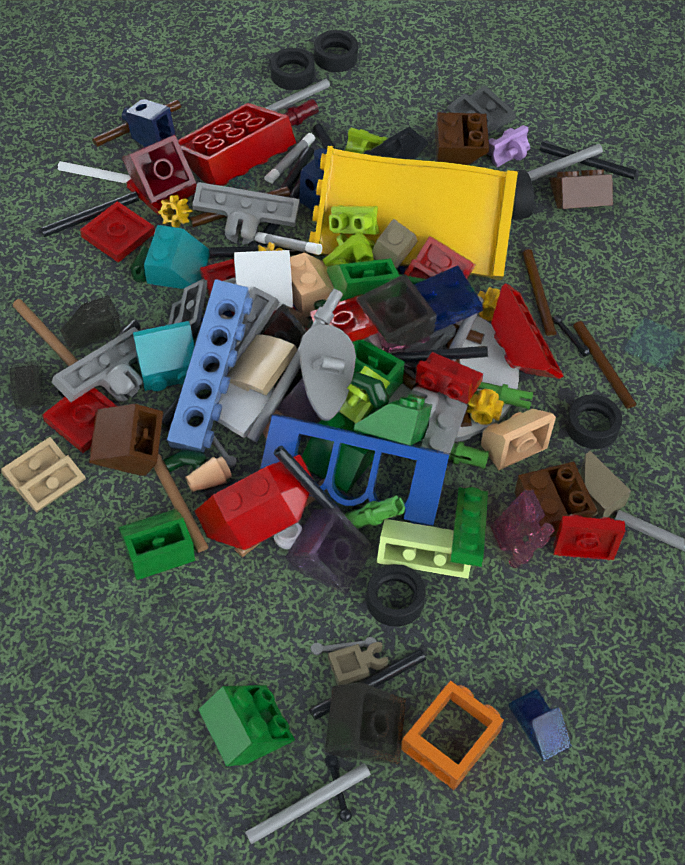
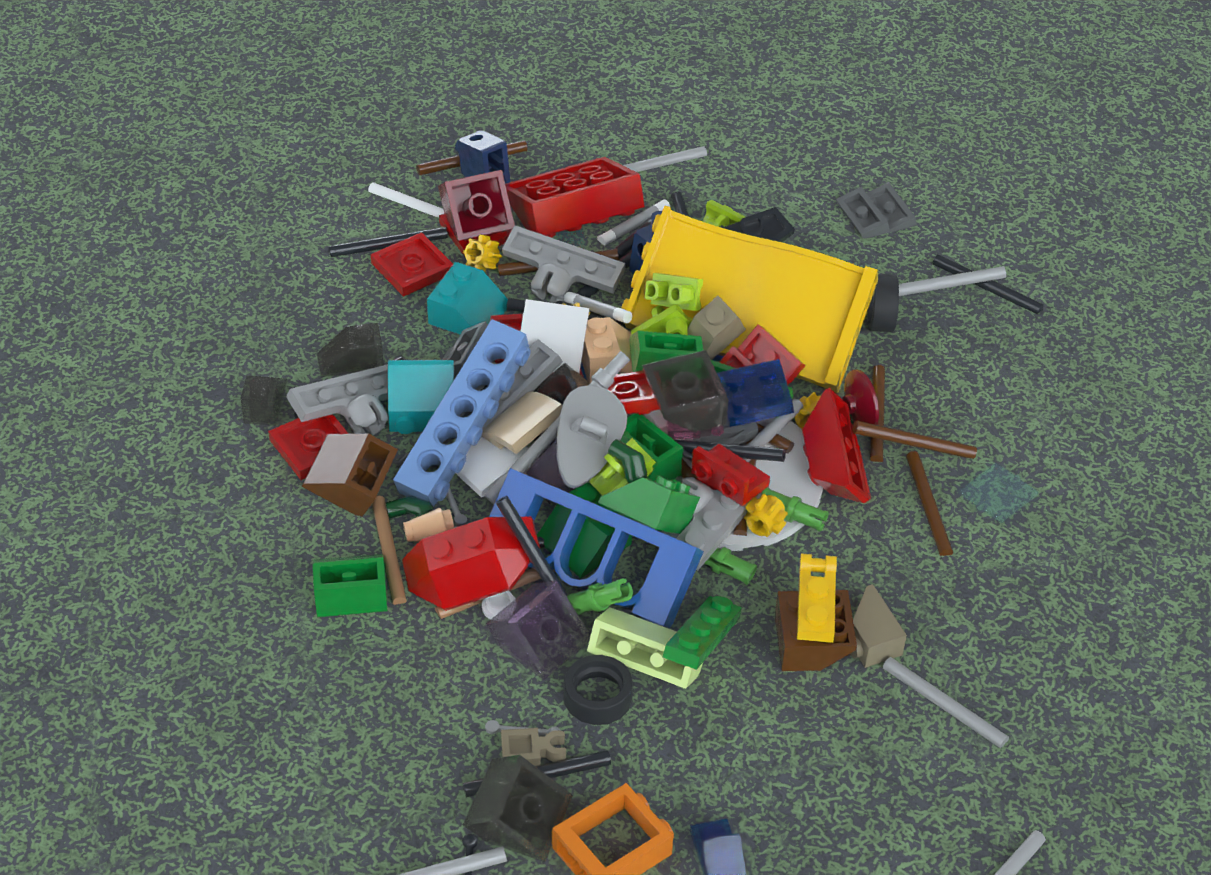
camera: 15 degrees right, 10 degrees down
(43, 474) = (250, 492): tan slope -> none
(44, 332) = (297, 348): medium nougat bar -> none
(137, 267) = (420, 306): dark green arm -> none
(245, 723) = (386, 779): green slope -> none
(292, 81) = (667, 142): black tyre -> none
(301, 112) = (656, 178): dark red pin -> none
(331, 62) = (725, 131): black tyre -> none
(461, 137) = (839, 230): reddish brown slope -> none
(509, 146) = (895, 251): lavender hips -> none
(518, 437) = (780, 555): light nougat slope -> none
(518, 521) = (761, 648): clear pink plate -> none
(530, 285) = (861, 397): none -> dark red dish
(555, 477) = (816, 599): none -> yellow plate
(557, 319) = (908, 482): black hinge -> none
(578, 312) = (914, 439): none -> reddish brown bar
(584, 190) = (966, 312): slope -> none
(588, 438) = (890, 578): black tyre -> none
(588, 537) = (837, 672): red plate -> none

